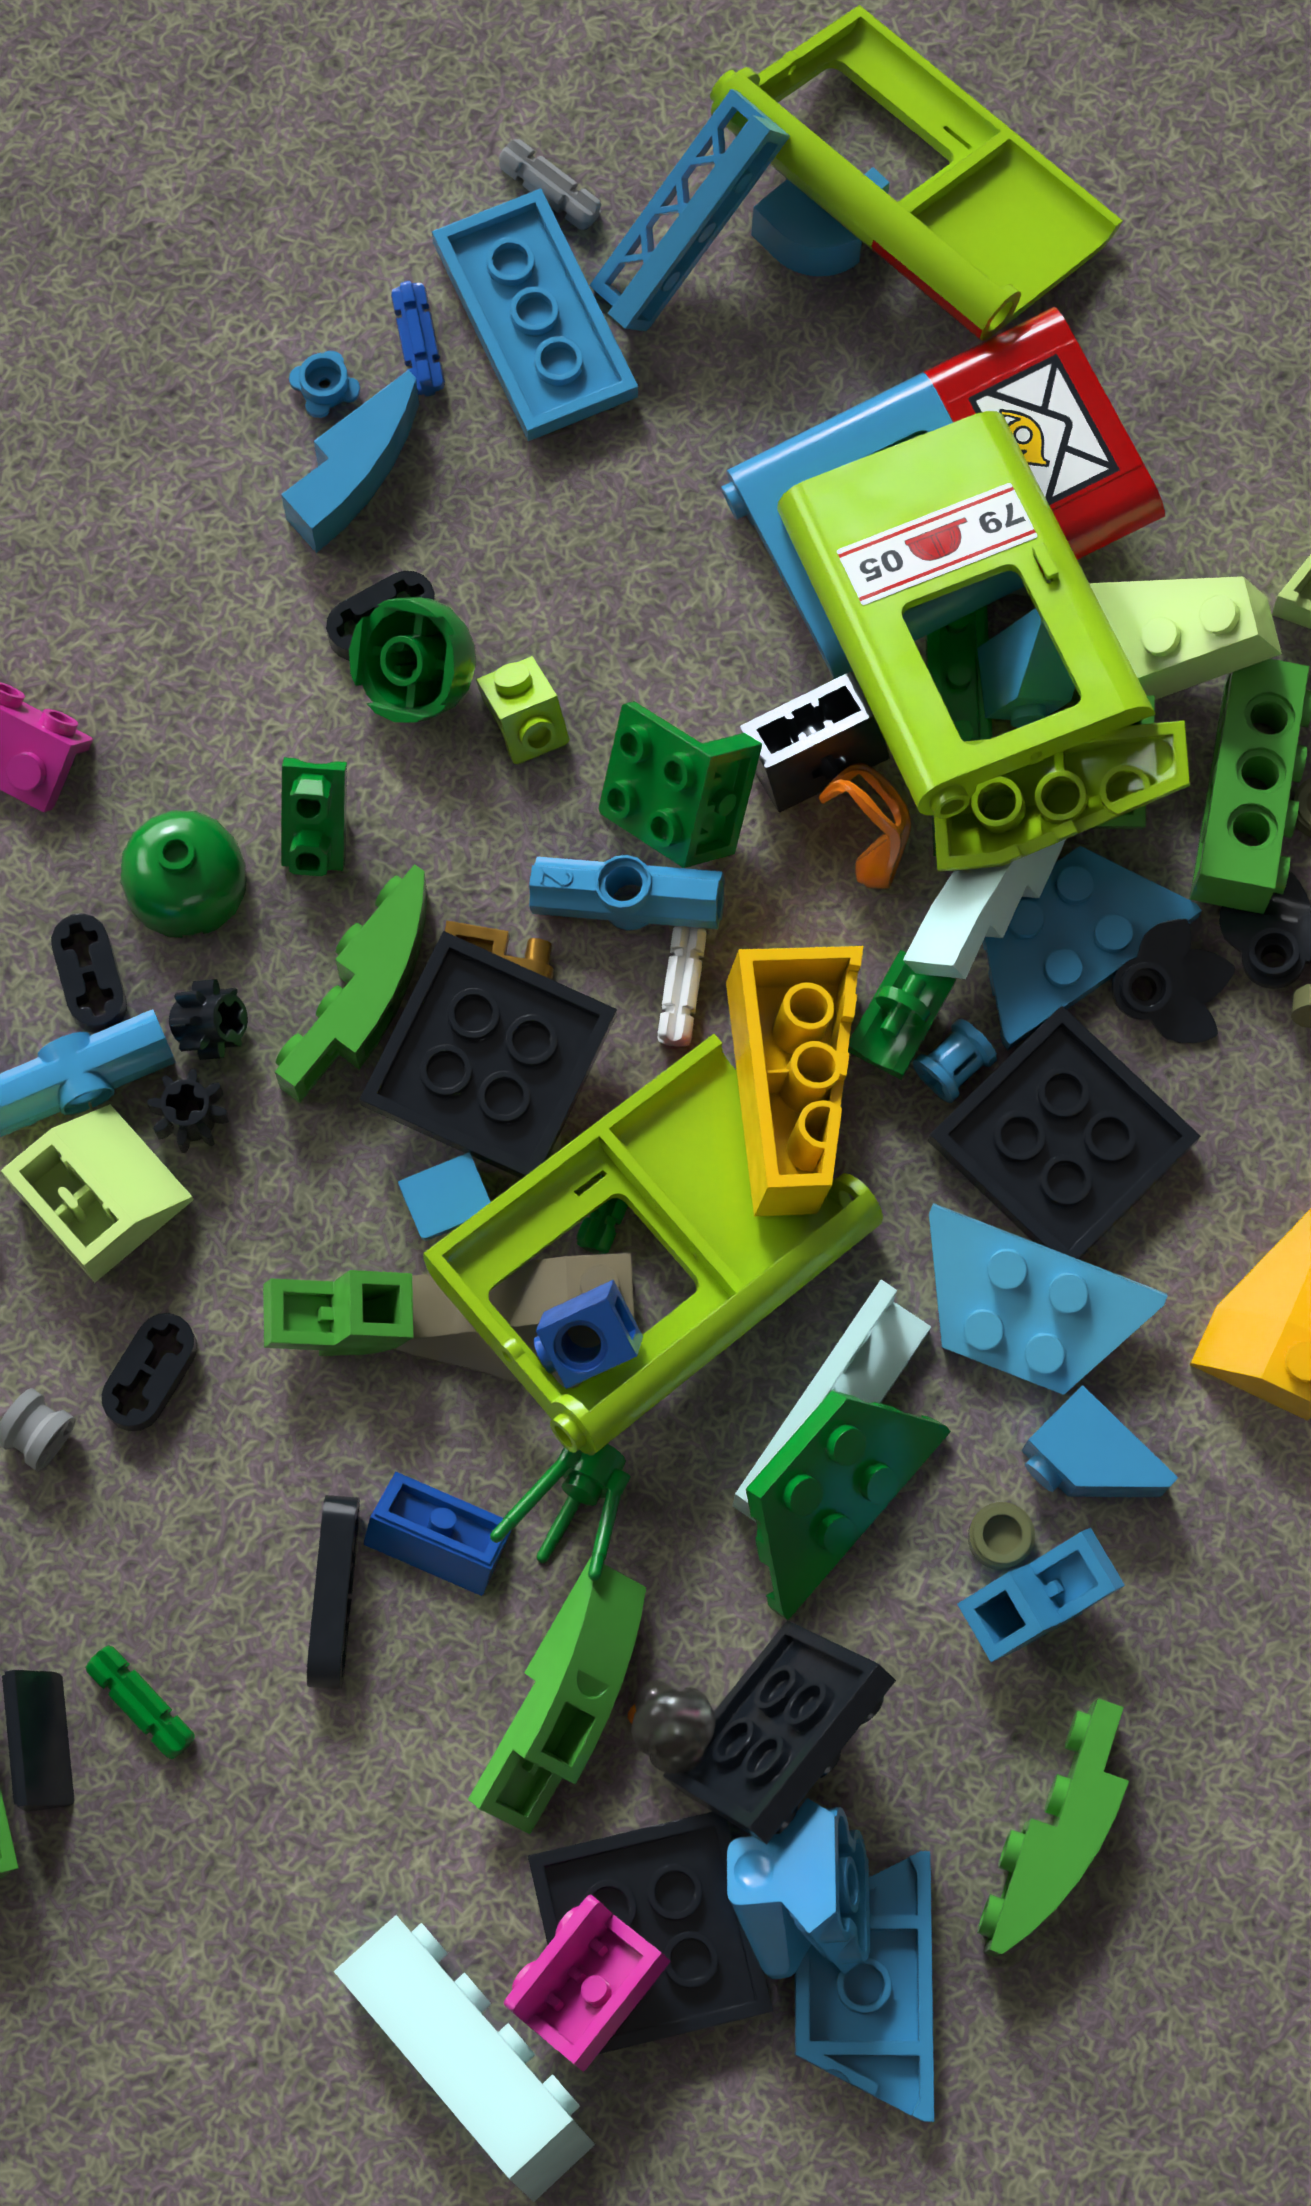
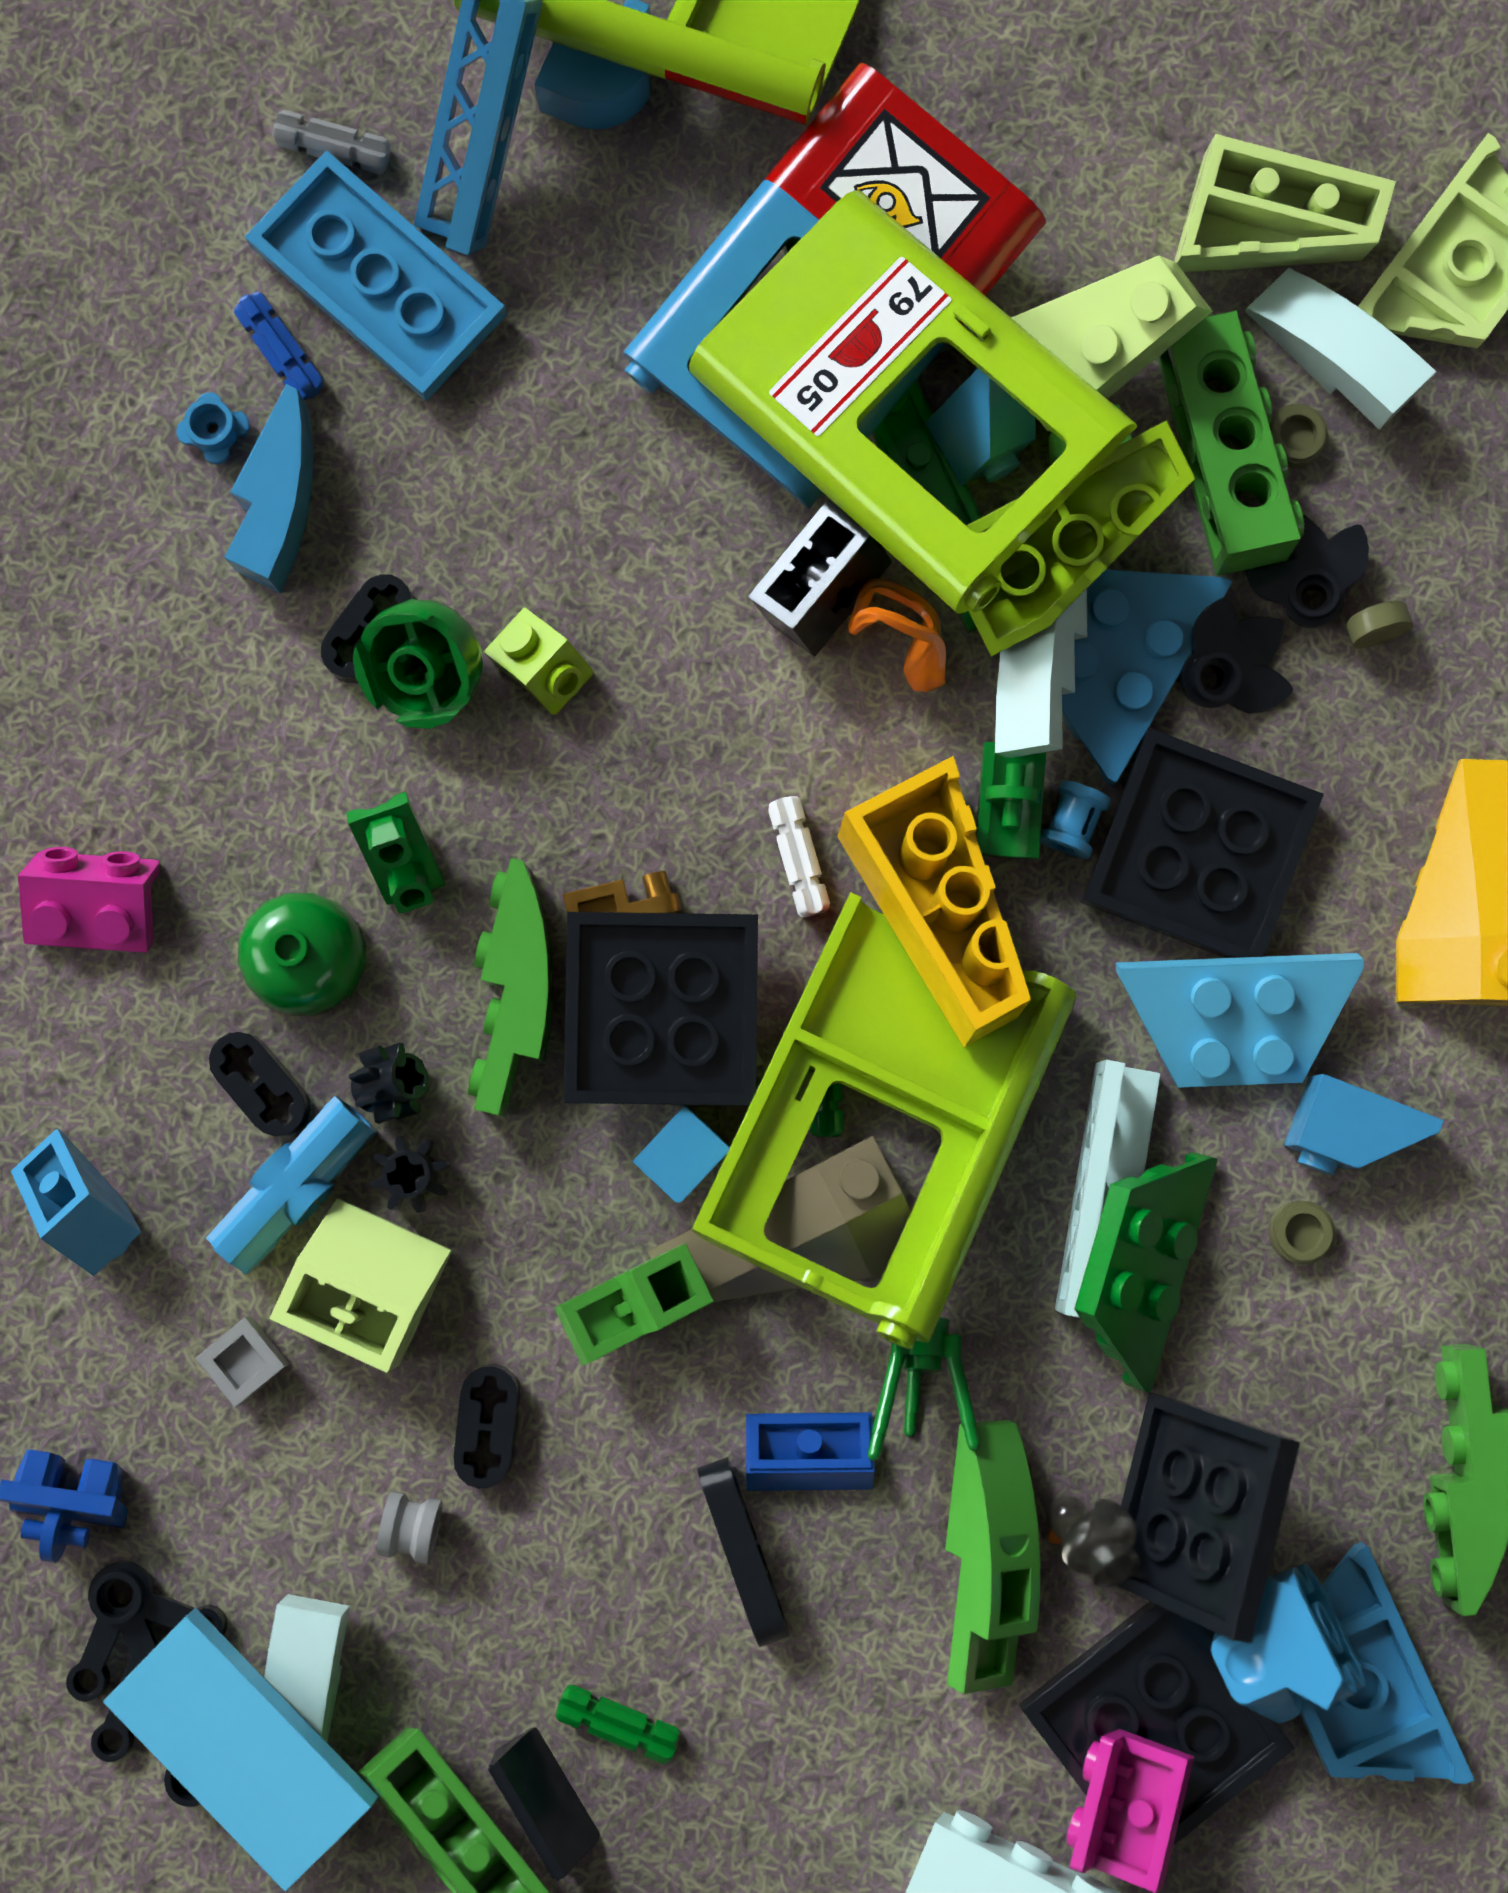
camera: 20 degrees left, 10 degrees up
(607, 1315) = (872, 1211): blue brick -> none
(665, 897) = (675, 808): dark azure piece -> none
(678, 791) = (715, 682): green bracket -> none
(1041, 1595) = (1360, 1280): dark azure brick -> none

